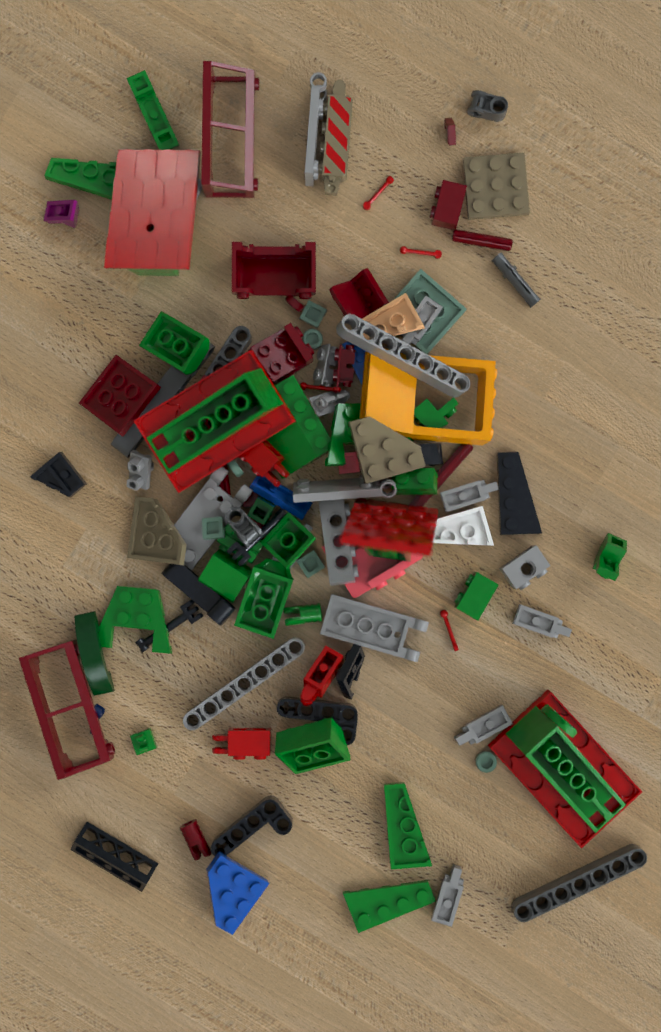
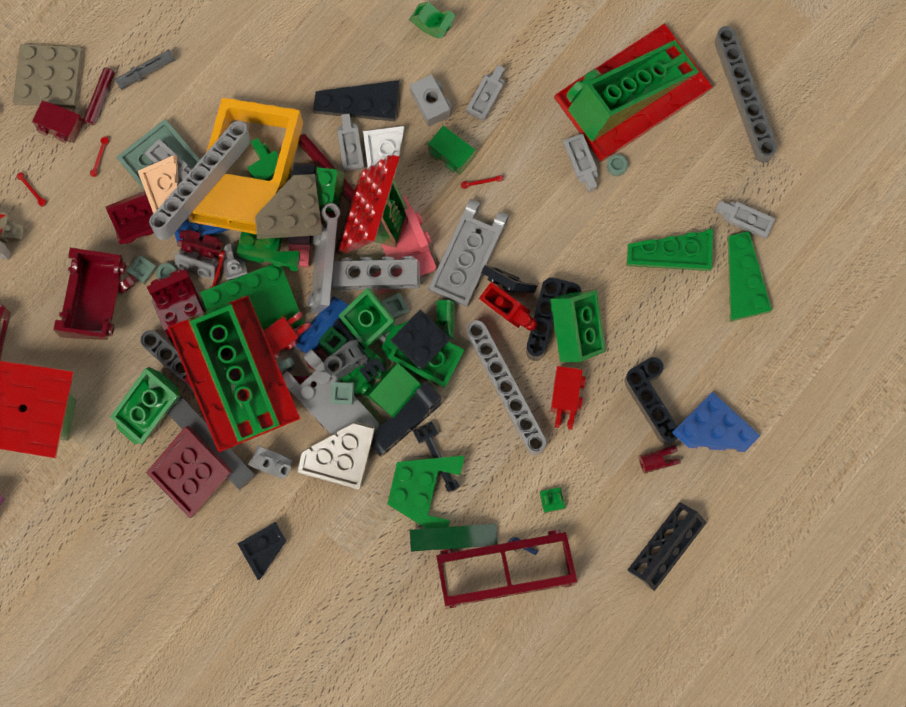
camera: 80 degrees left, 10 degrees down
(274, 595) = (420, 339): none -> black plate

